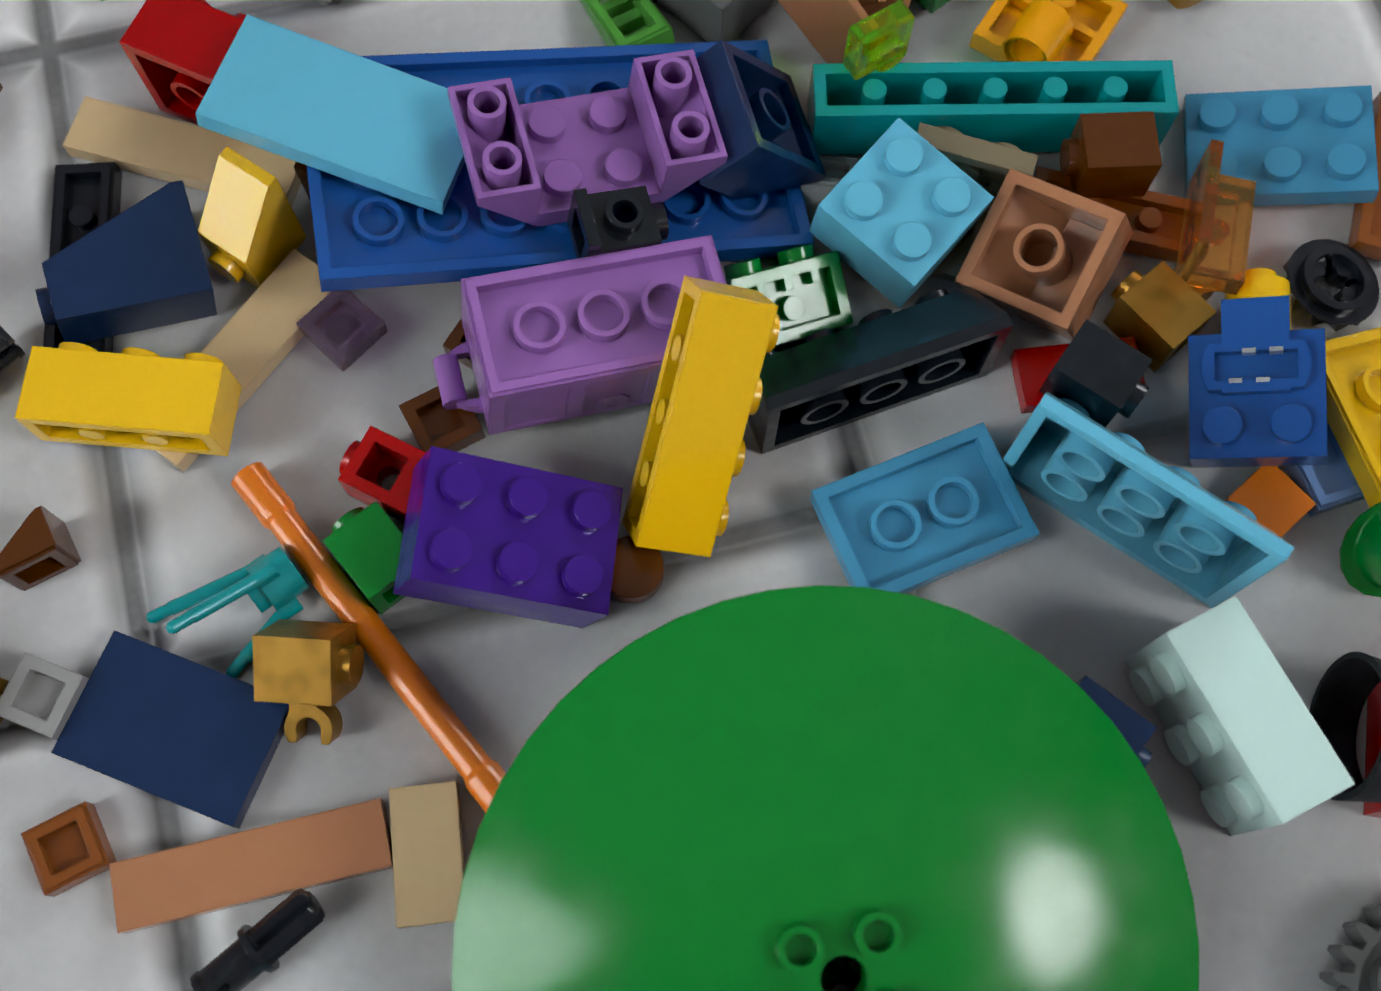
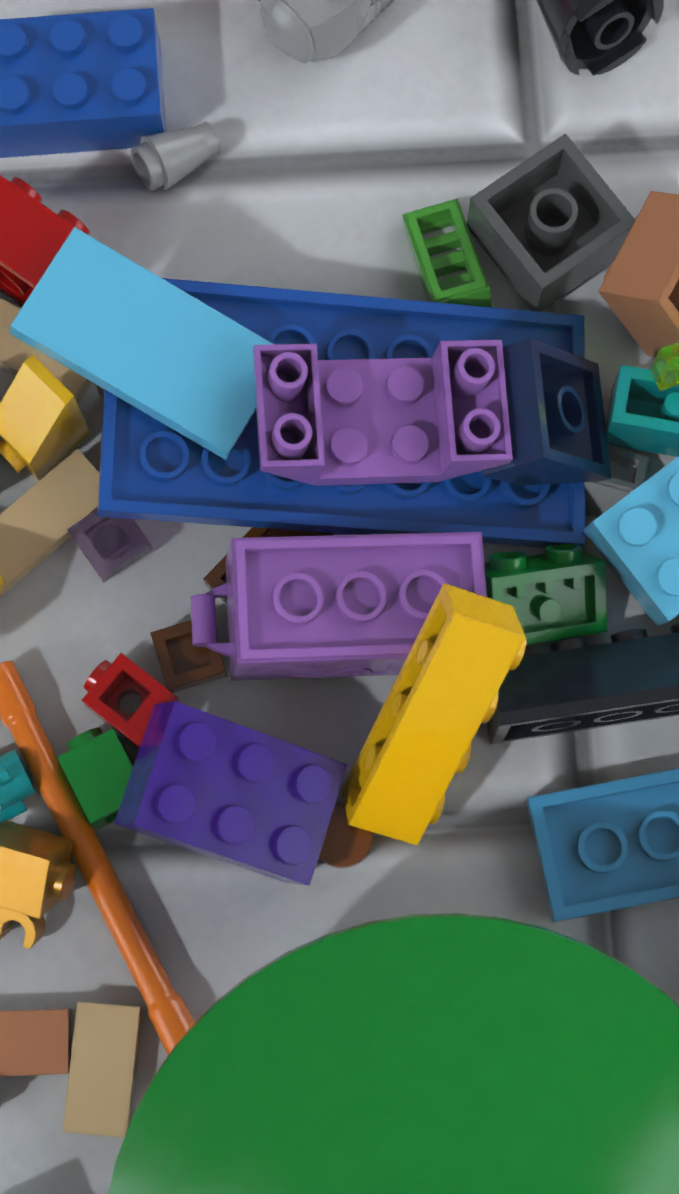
camera: 15 degrees right, 5 degrees up
(615, 221) = (370, 508): black brick -> none

